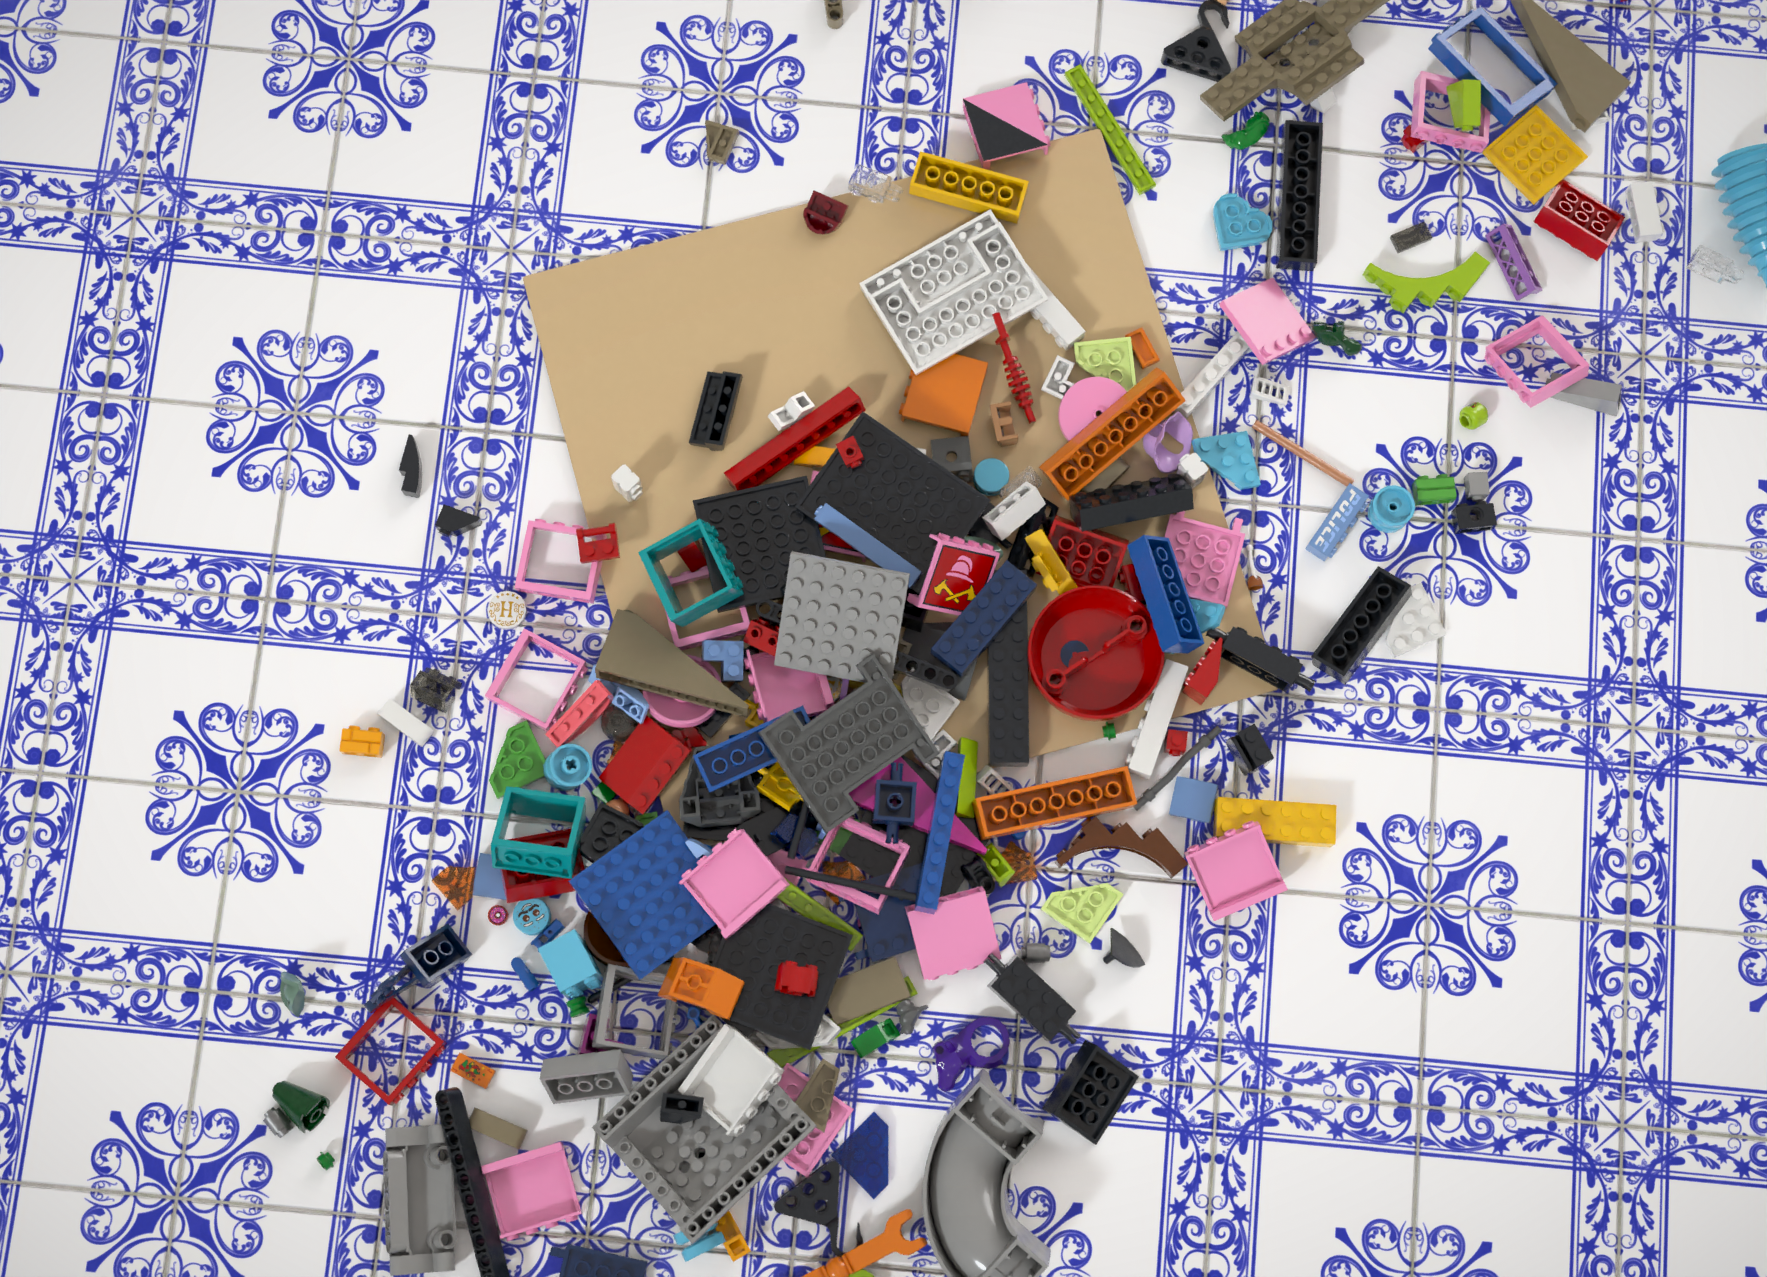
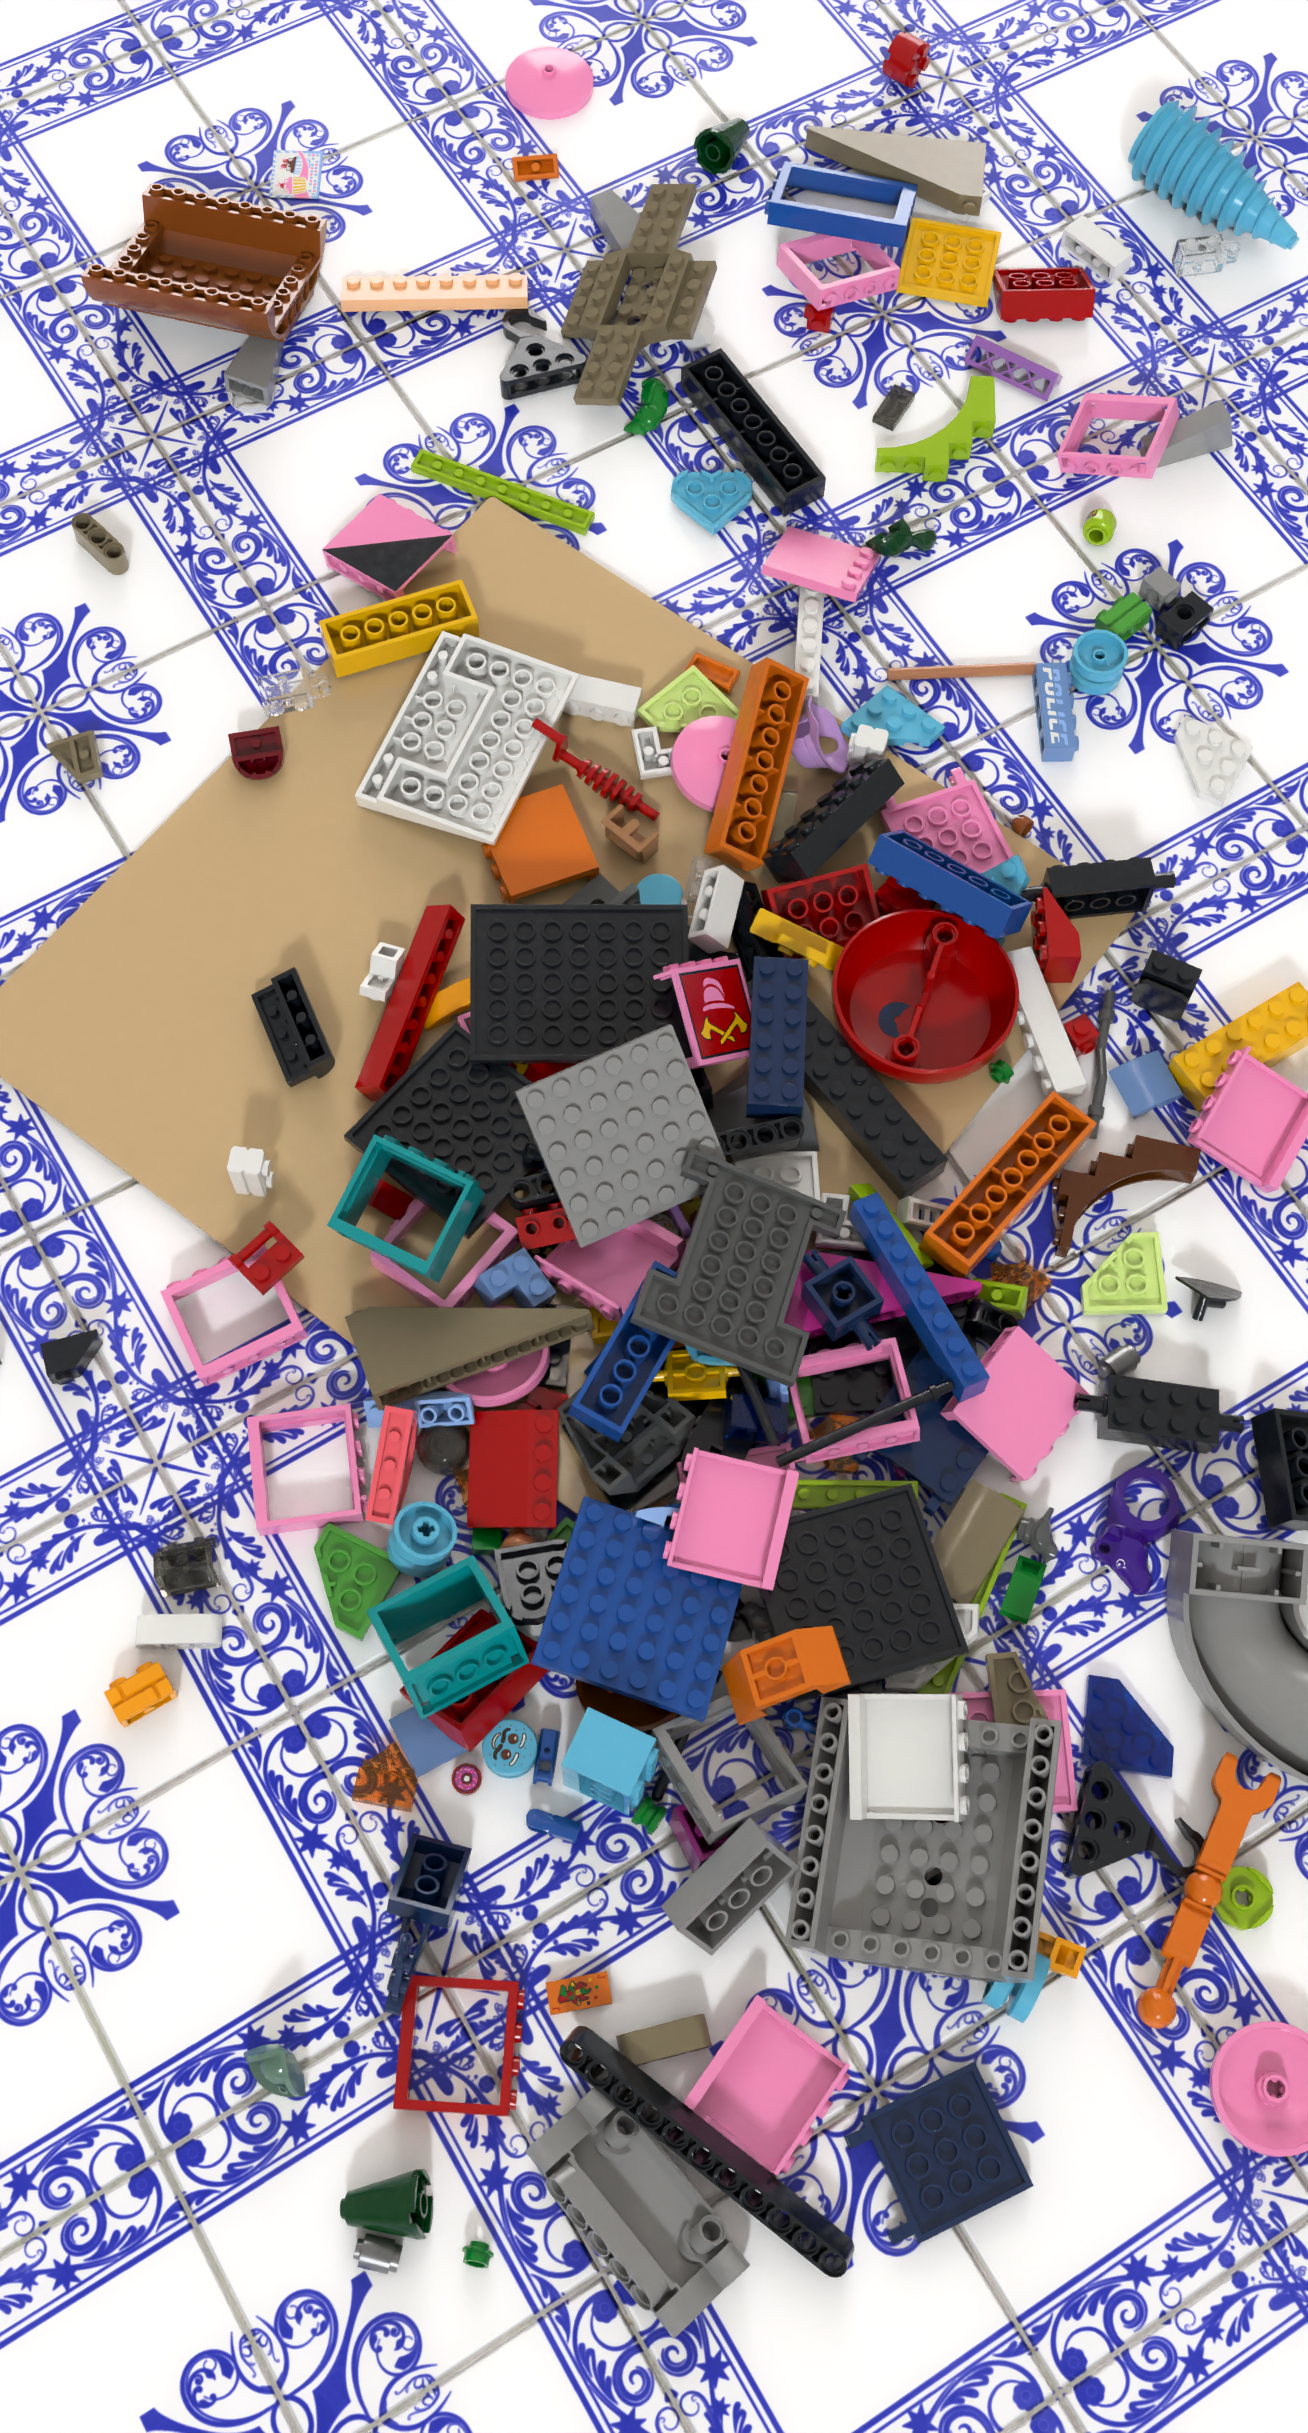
camera: 35 degrees left, 10 degrees down
(507, 610) = (208, 1415): white tile -> none
(680, 1108) = (871, 1838): black slope -> none
(796, 980) = (893, 1575): red brick -> none
(850, 452) = (491, 954): red brick -> none
(864, 542) = (565, 1042): medium blue brick -> none
(1271, 385) = (873, 642): white slope -> none
(1361, 625) = (1167, 790): black brick -> none
(1465, 103) = (849, 241): lime slope -> none

